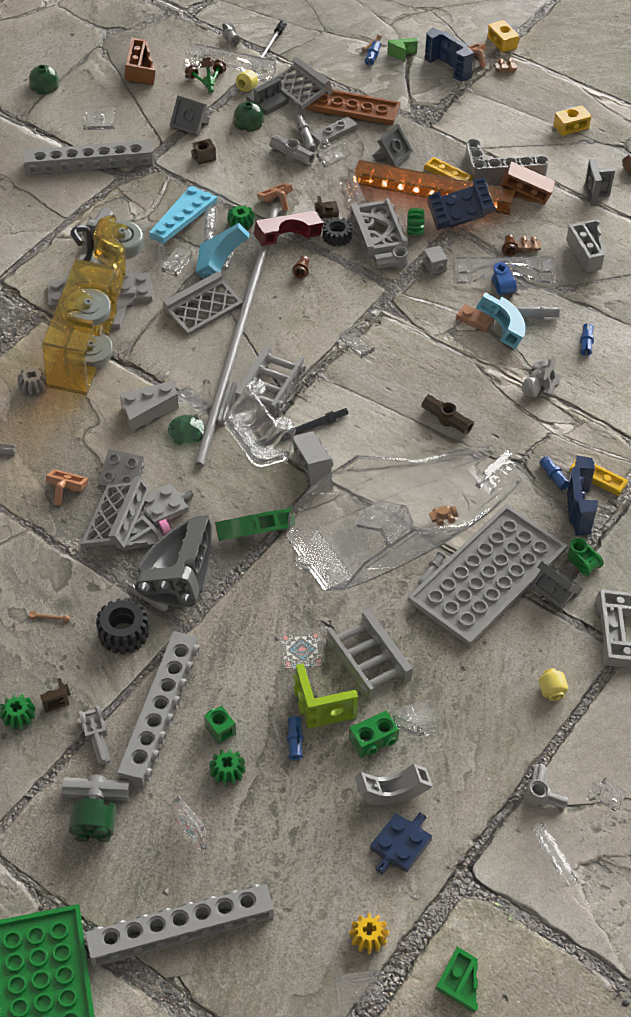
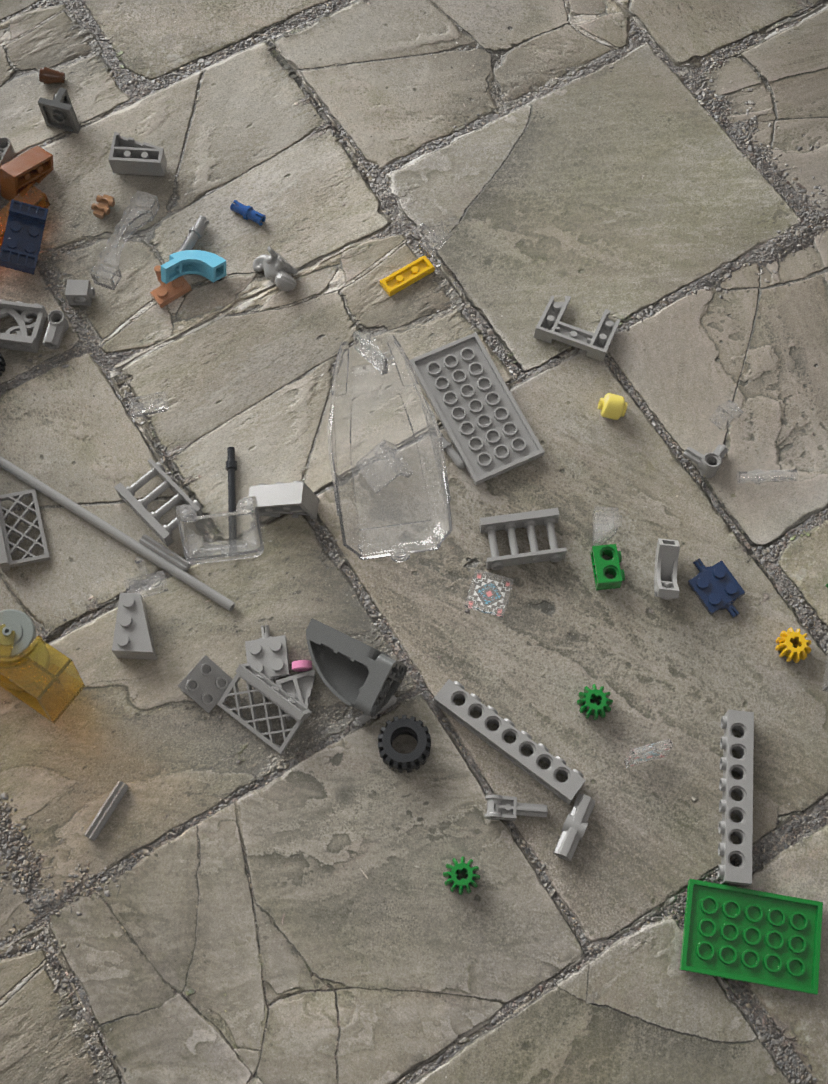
camera: 65 degrees left, 15 degrees up
(32, 380) = (29, 736): light grey gear -> none
(33, 615) = (346, 827): medium nougat hinge -> none
(56, 698) = (459, 836): dark brown bracket -> none
(65, 480) = (195, 742): nougat plate -> none
(92, 820) = (612, 839): dark green brick -> none
(186, 429) = (180, 603): clear green dish -> none
(223, 731) = (553, 687): green brick -> none
(252, 524) = (338, 580): green slope -> none
(295, 738) = (584, 634): blue pin -> none
(301, 268) = (20, 416): reddish brown cone -> none
(324, 709) = (558, 607): lime bracket -> none
(415, 221) = (20, 286): green gear -> none
(443, 513) = (399, 412): medium nougat piece -> none
(447, 414) = (290, 359): dark brown piece -> none
(503, 279) = (139, 247): blue piece -> none
(510, 246) = (96, 221): reddish brown cone -> none
(554, 472) = (388, 307): blue pin -> none
(555, 585) = (514, 359): dark grey bracket -> none
(581, 511) = (430, 301): dark blue plate -> none
(585, 557) = (493, 326): green piece -> none

